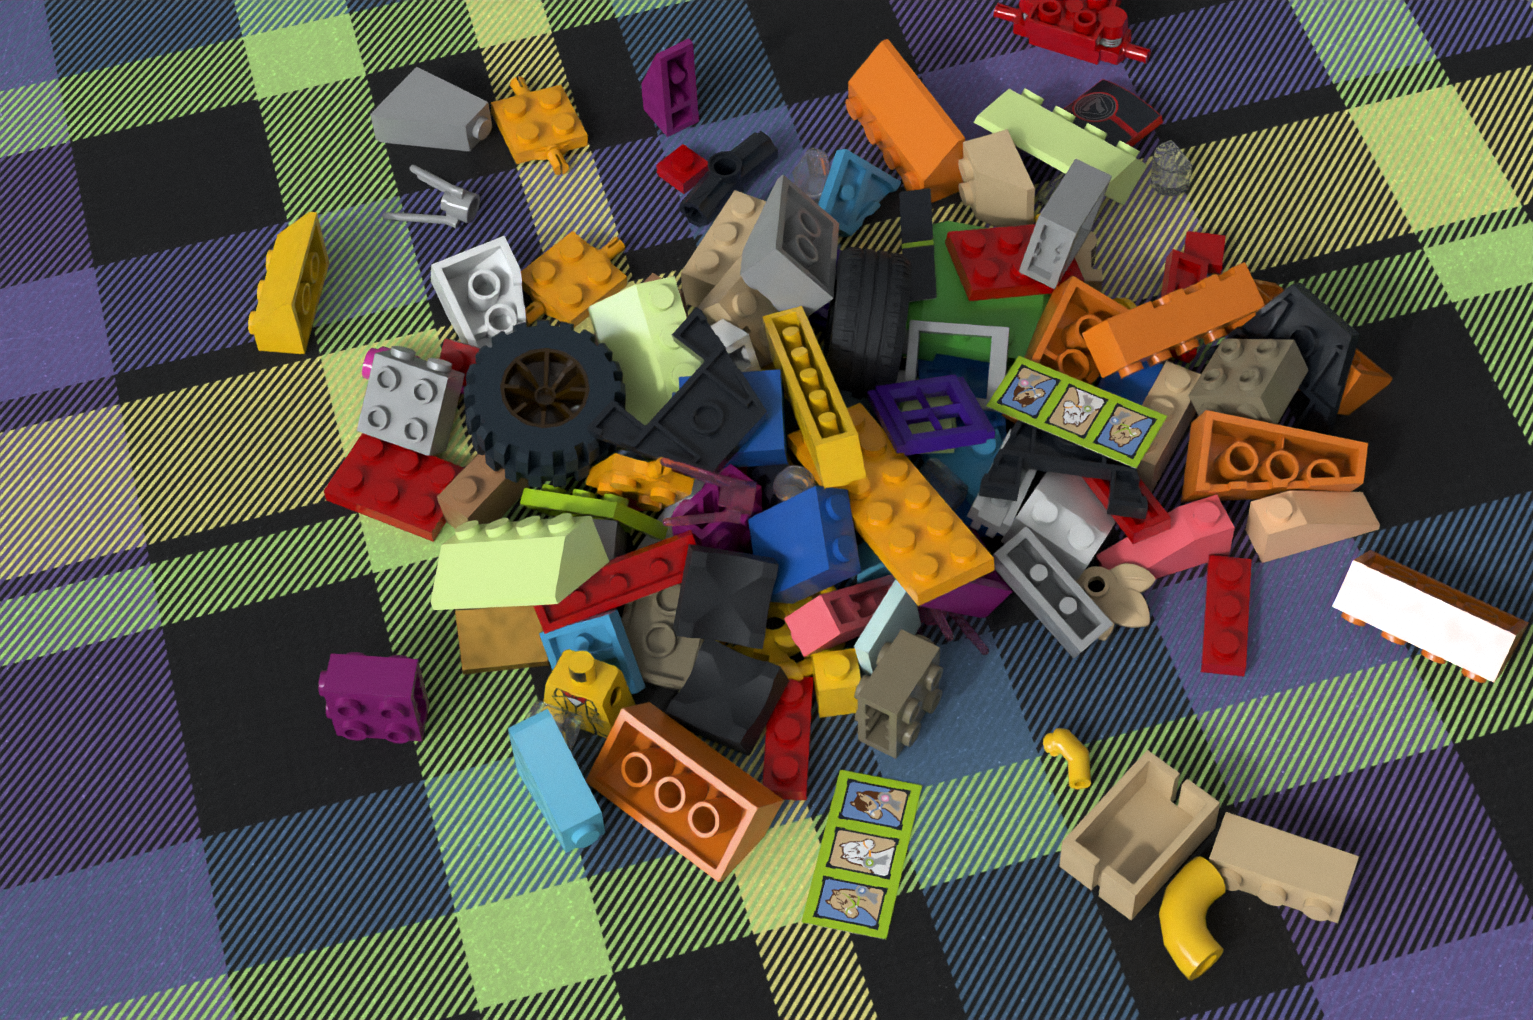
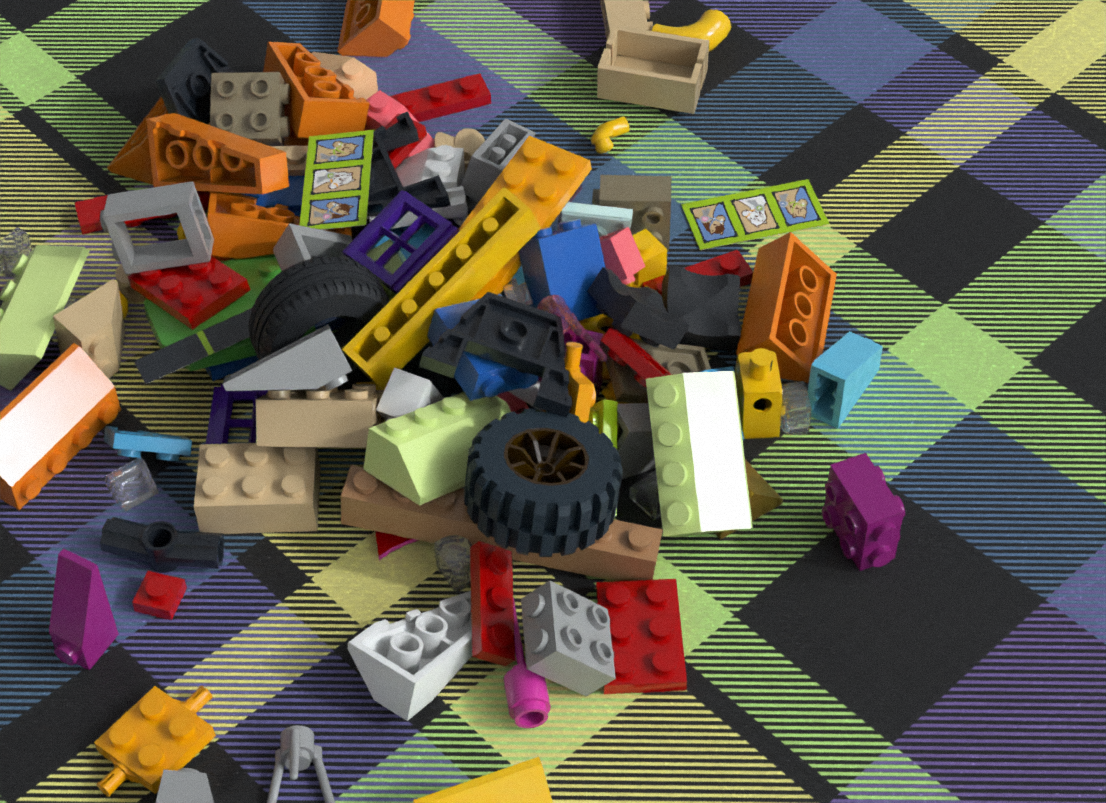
camera: 120 degrees left, 5 degrees down
(572, 279) = (335, 611): light orange plate -> none

